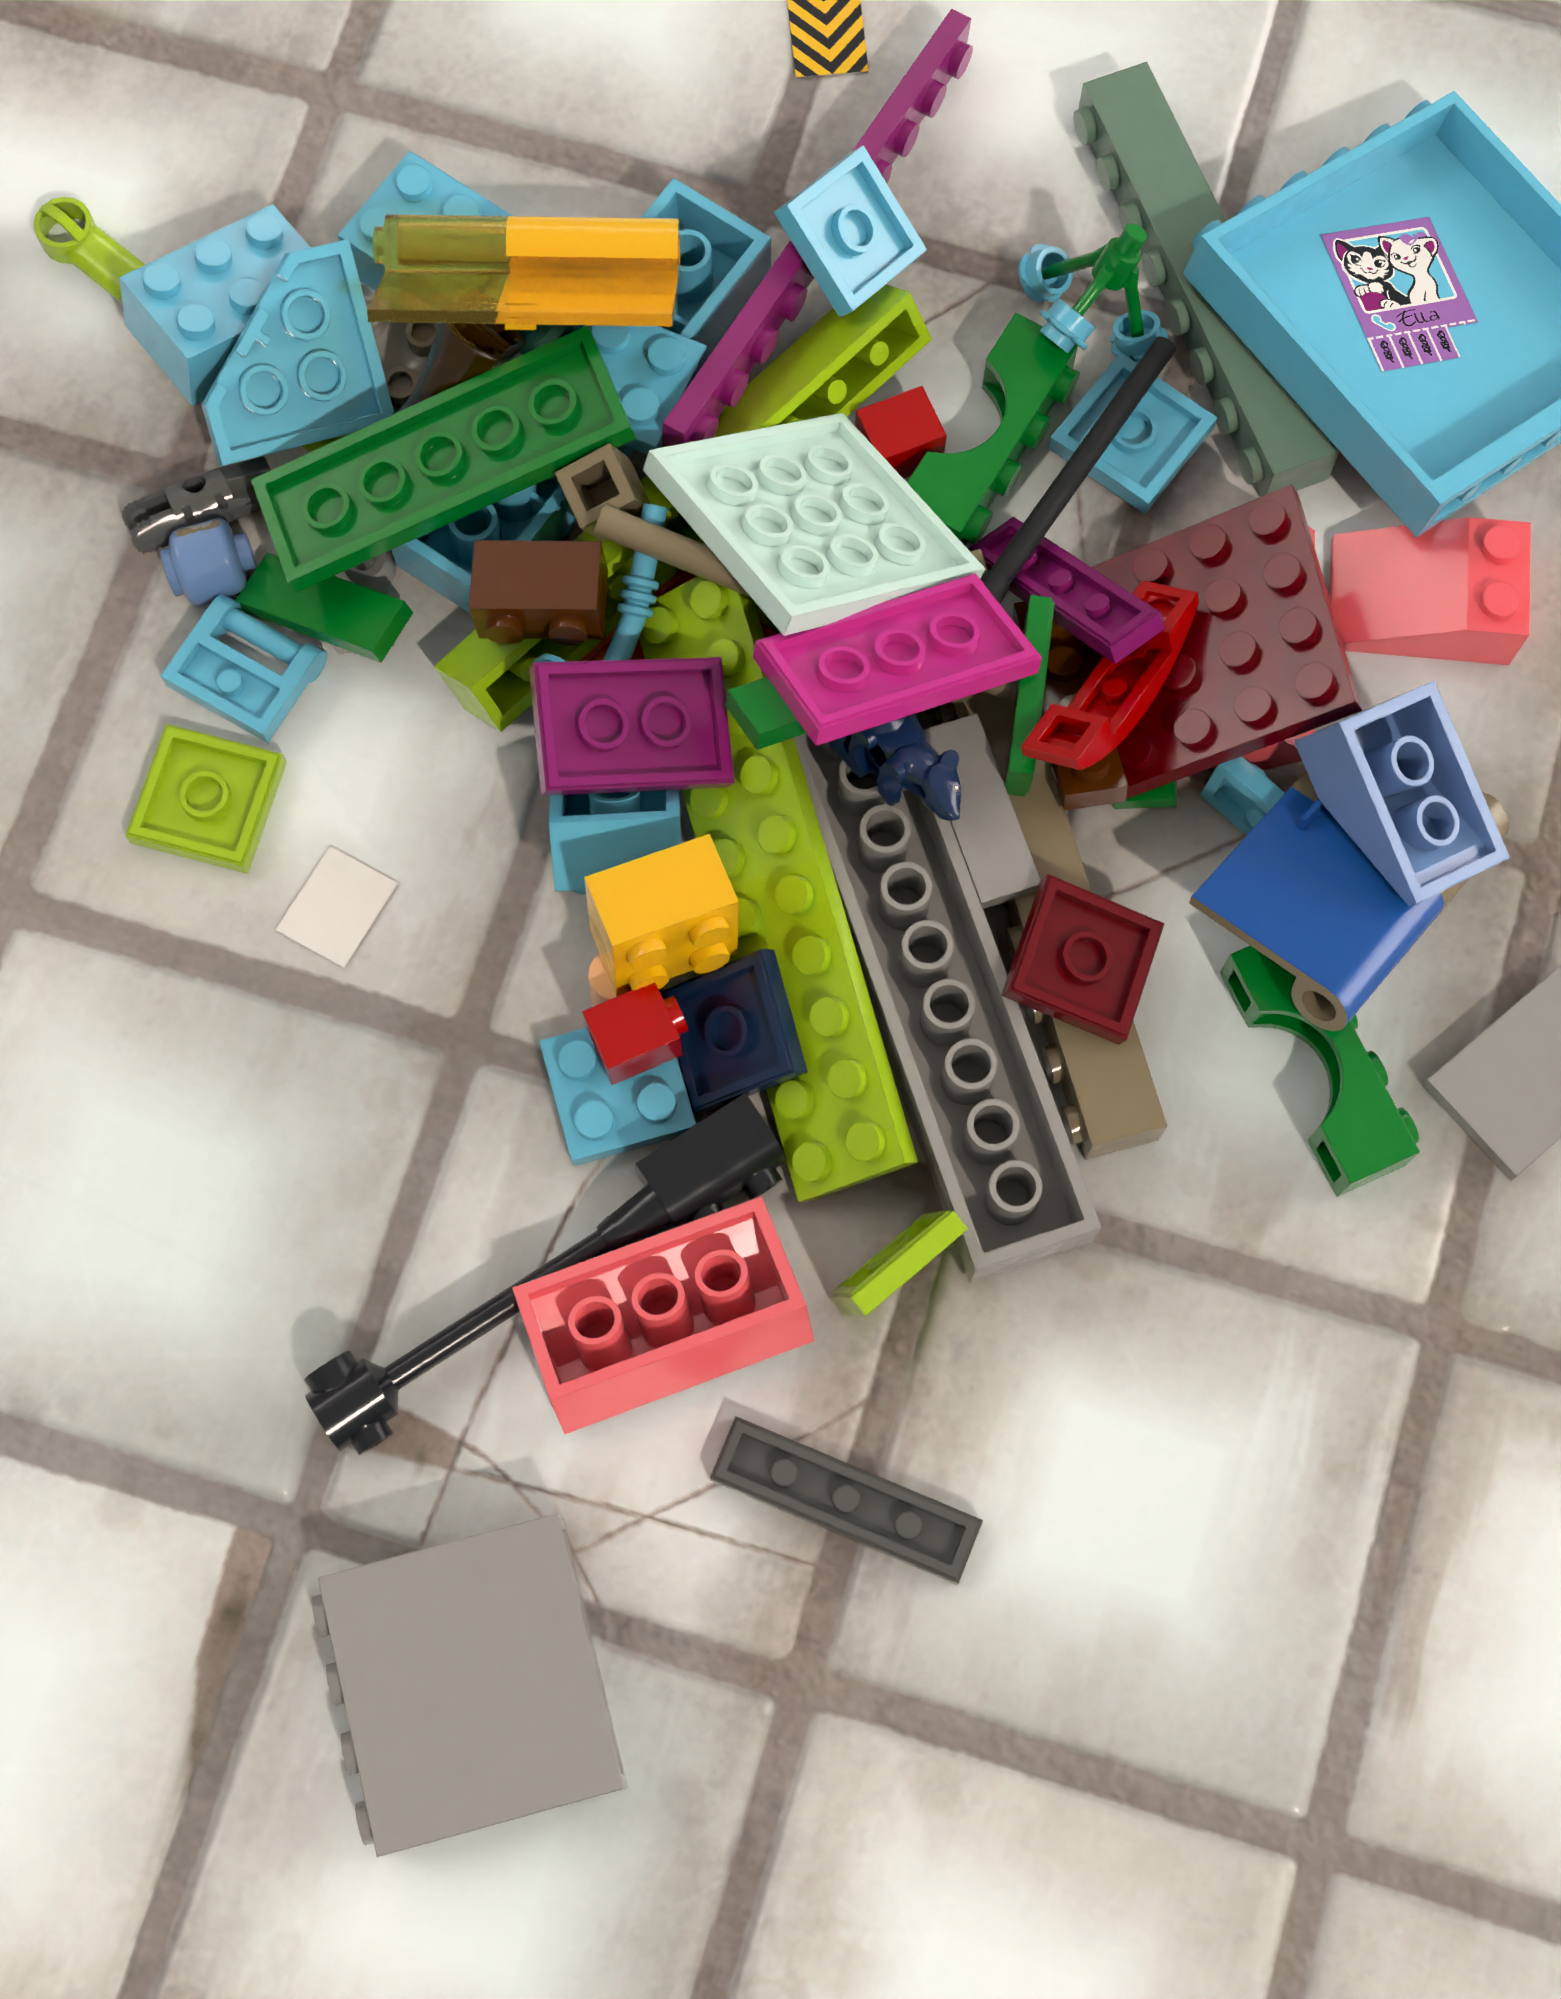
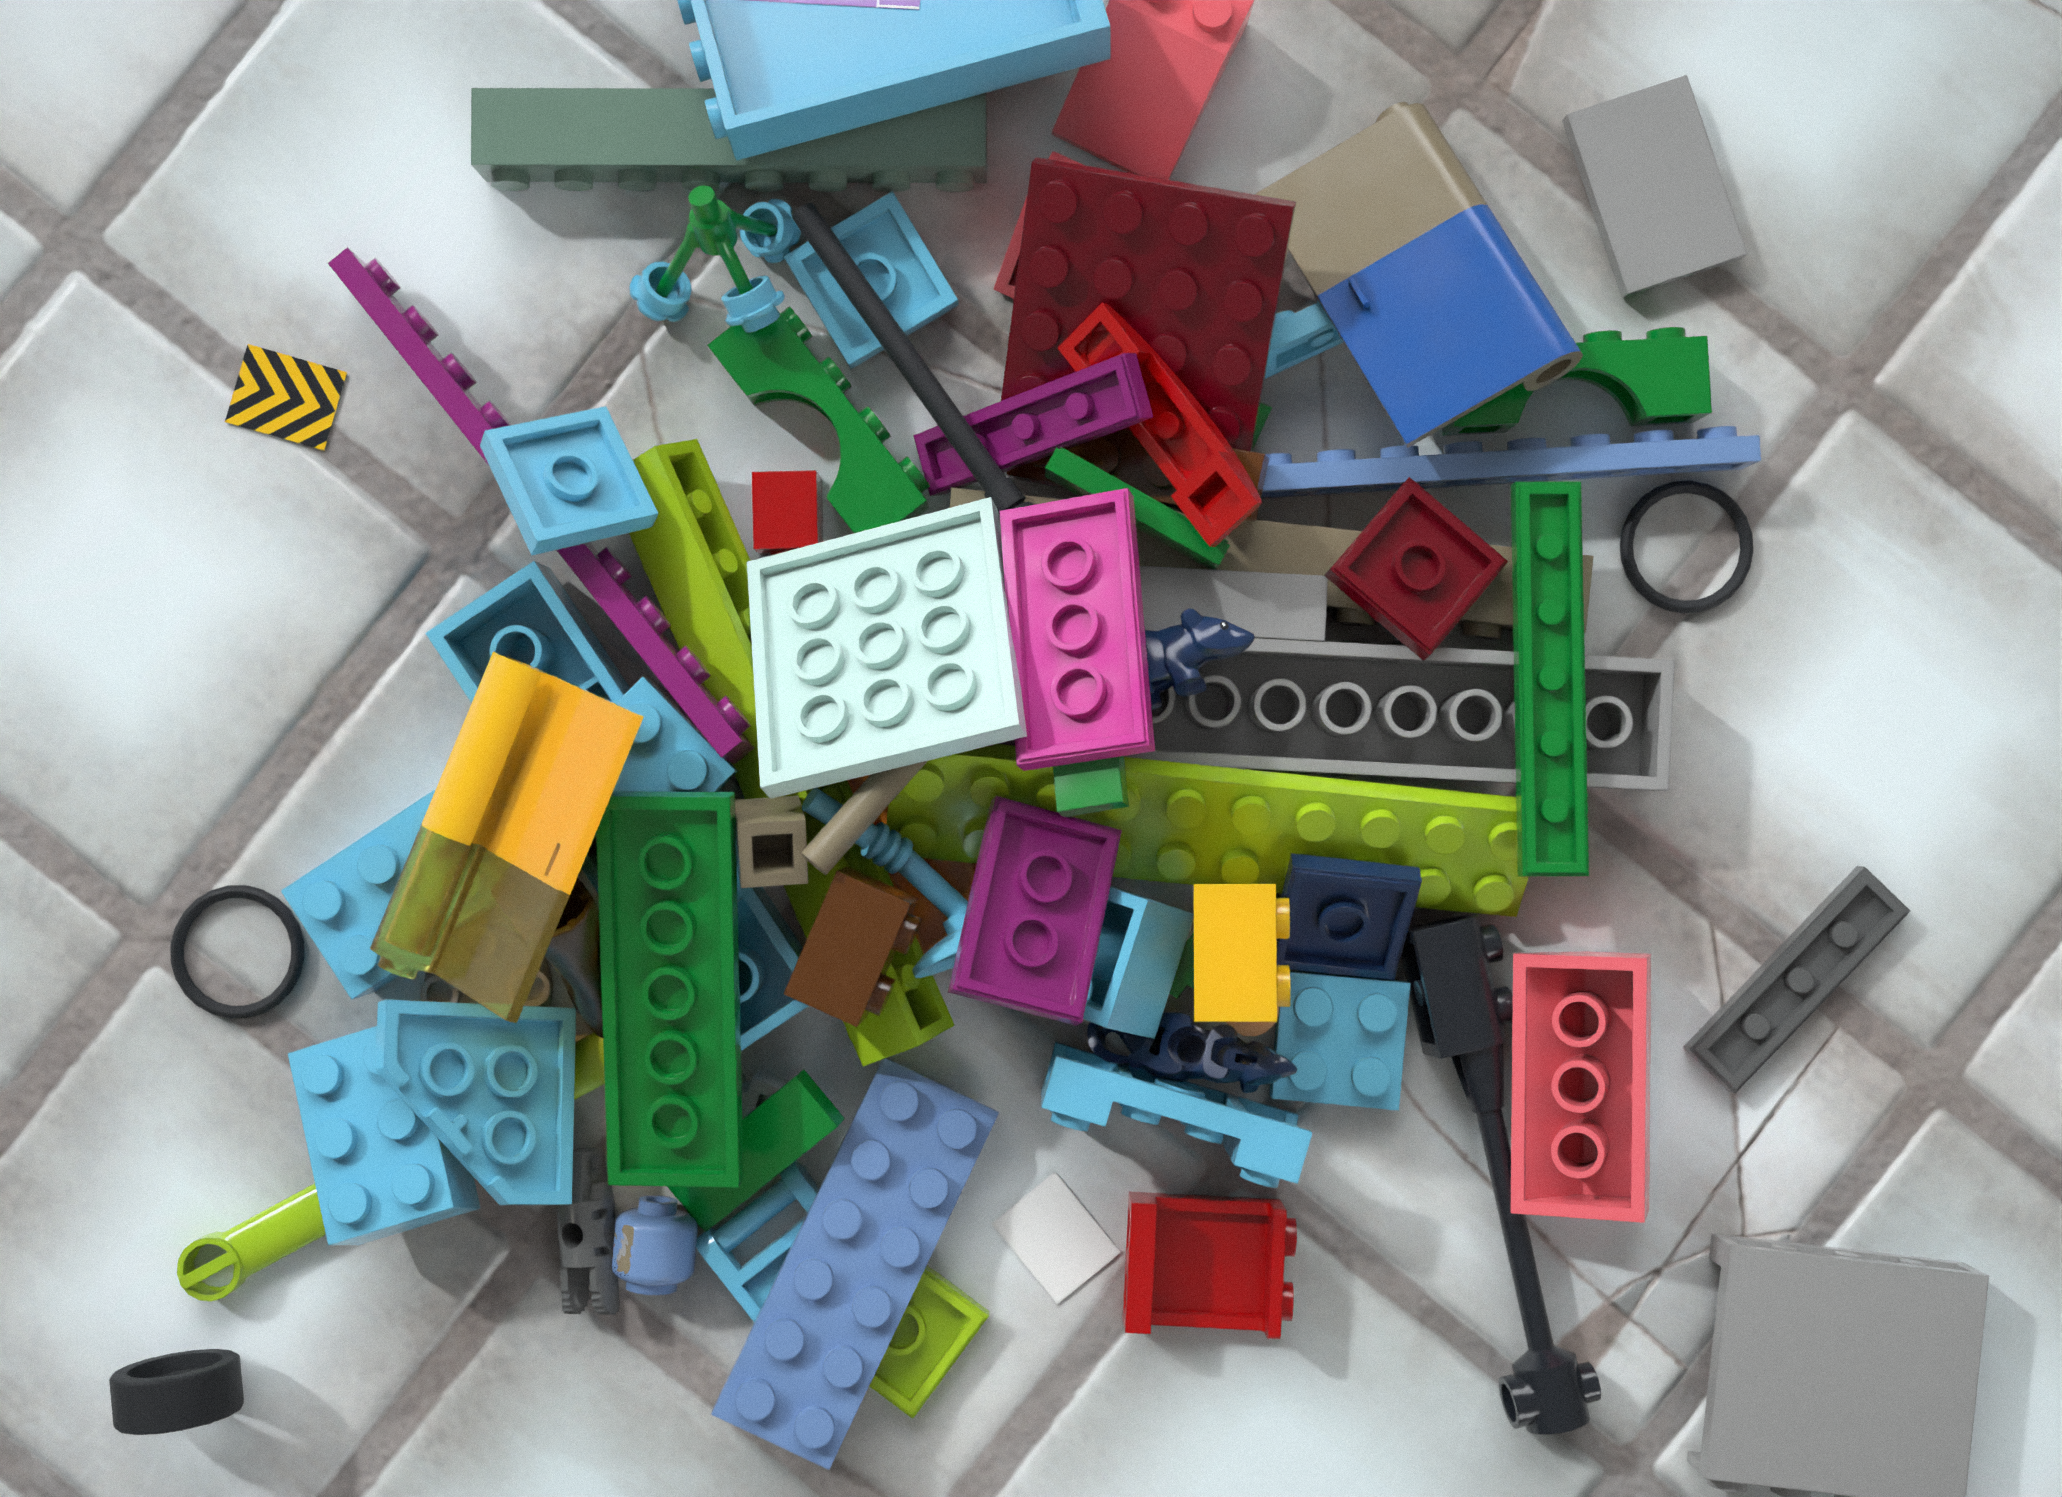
camera: 70 degrees left, 15 degrees up
(253, 726) = (855, 1263): none -> medium blue plate
(316, 118) = (179, 938): none -> black tyre
(360, 1036) = (1207, 1263): none -> red panel
(496, 1016) = (1257, 1135): none -> medium azure piece
(554, 941) = (1192, 1052): none -> dark blue animal
(635, 1032) = (1319, 1013): red brick -> none
(897, 1262) = (1630, 859): lime tile -> none
(1031, 1113) = (1549, 679): none -> green tile
(1183, 1282) = (1745, 540): none -> black tyre
(1226, 1042) = (1523, 461): none -> medium blue plate
(1405, 793) = (1381, 195): medium blue slope -> none

